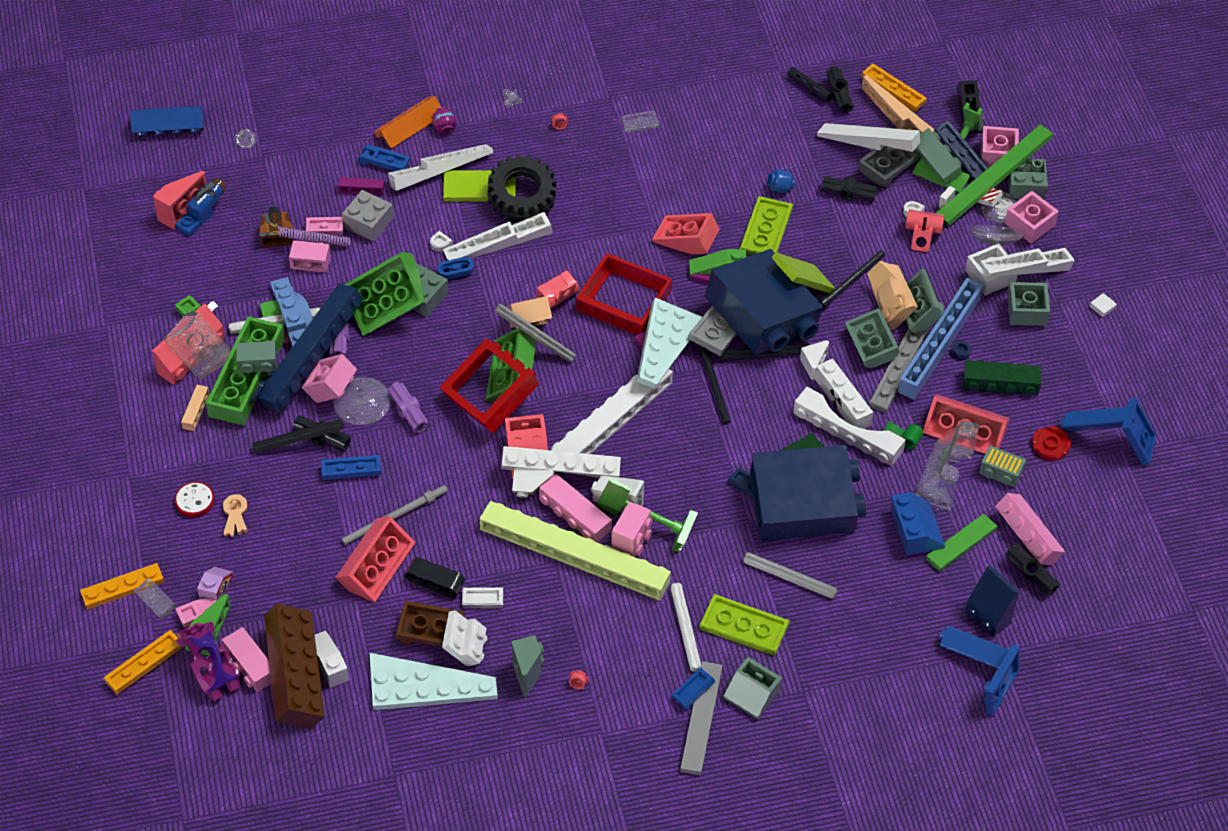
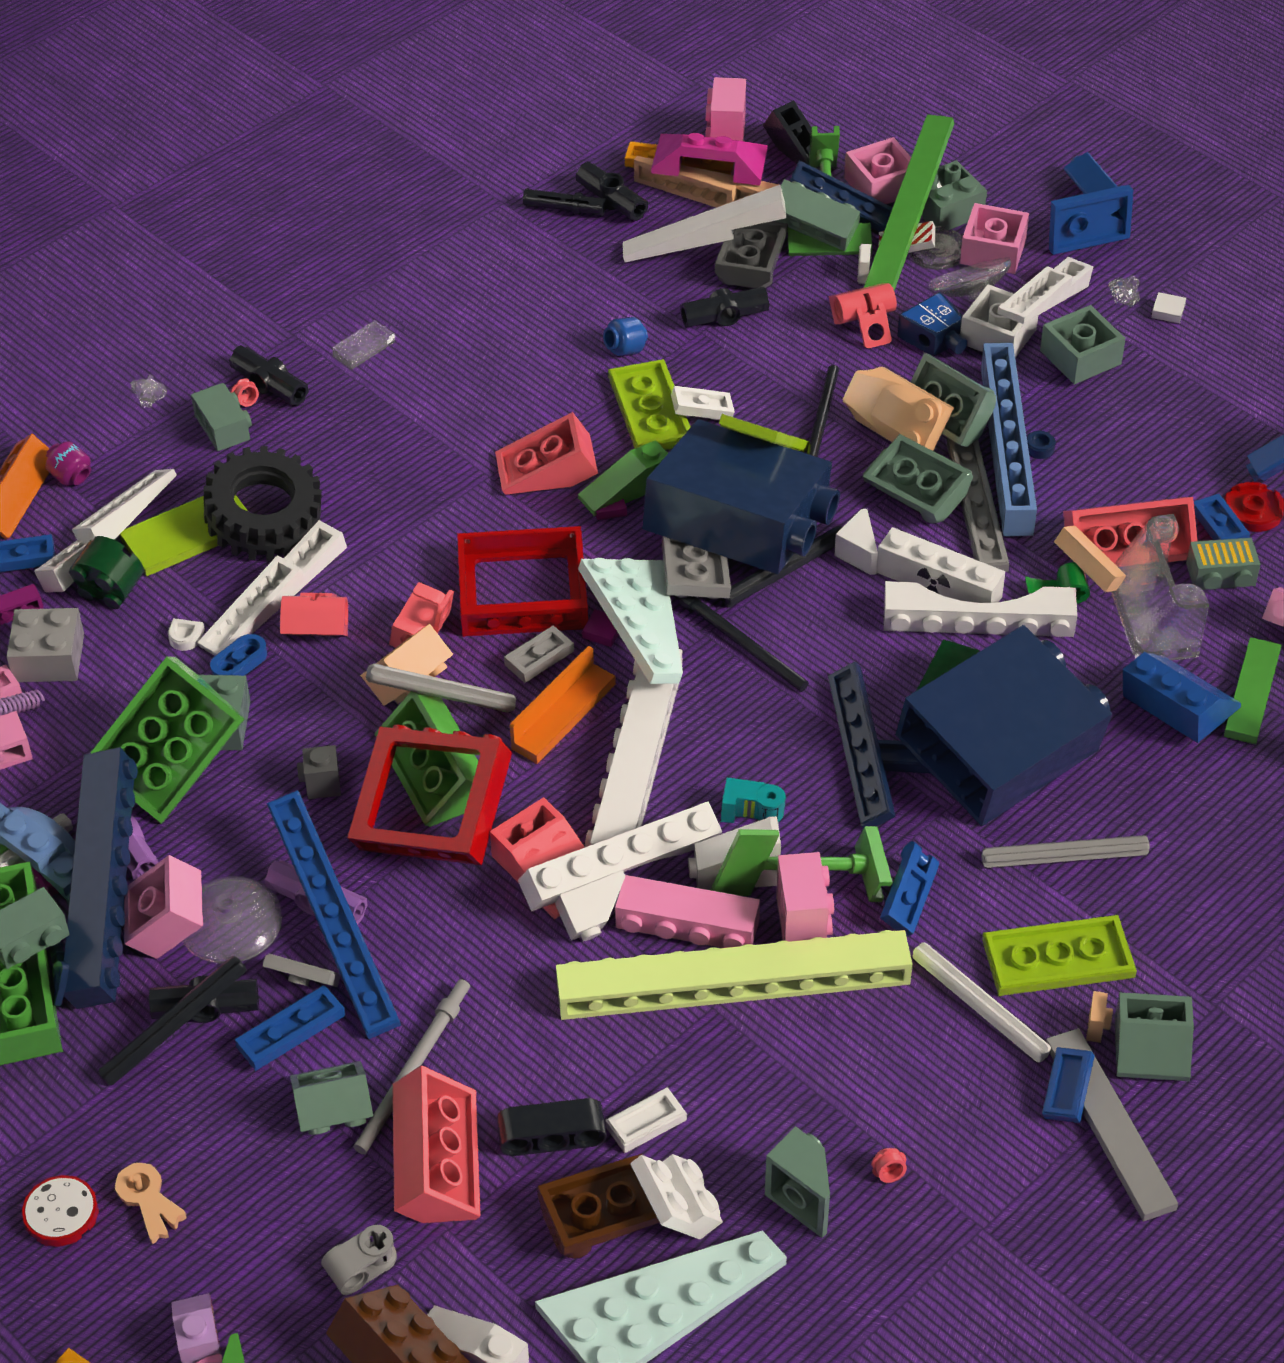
camera: 30 degrees left, 5 degrees down
(305, 591) = (359, 1260): none -> light grey piece
(345, 510) = (331, 1097): none -> sand green slope
(374, 442) = (301, 972): none -> light grey plate
(405, 422) = (333, 915): none -> blue tile
(420, 190) = (106, 572): none -> dark green brick
(452, 347) = (320, 772): none -> dark grey brick
(506, 262) = (314, 615): none -> coral piece
(538, 129) = (221, 416): none -> sand green brick
(578, 117) = (269, 375): none -> black piece
(593, 371) = (560, 707): none -> orange panel
(604, 338) = (539, 654): none -> light grey plate
(651, 468) = (751, 800): none -> teal leg
(693, 553) = (909, 889): none -> blue plate
(728, 467) = (861, 746): none -> dark blue tile
(734, 663) = (1099, 1017): none -> light nougat plate
(791, 239) = (701, 402): none -> white plate
(912, 205) = (821, 297): white tile -> none
(922, 100) = (748, 156): none -> dark pink slope
(926, 427) = (1090, 558): none -> light nougat piece
(936, 72) = (726, 108): none -> bright pink brick
(954, 253) = (933, 326): none -> torso
(1001, 377) = (1124, 452): dark green brick -> none
(1023, 441) = (1219, 519): none -> blue plate
(1083, 283) = (1125, 290): none -> clear piece
(1099, 230) = (1093, 217): none -> blue piece

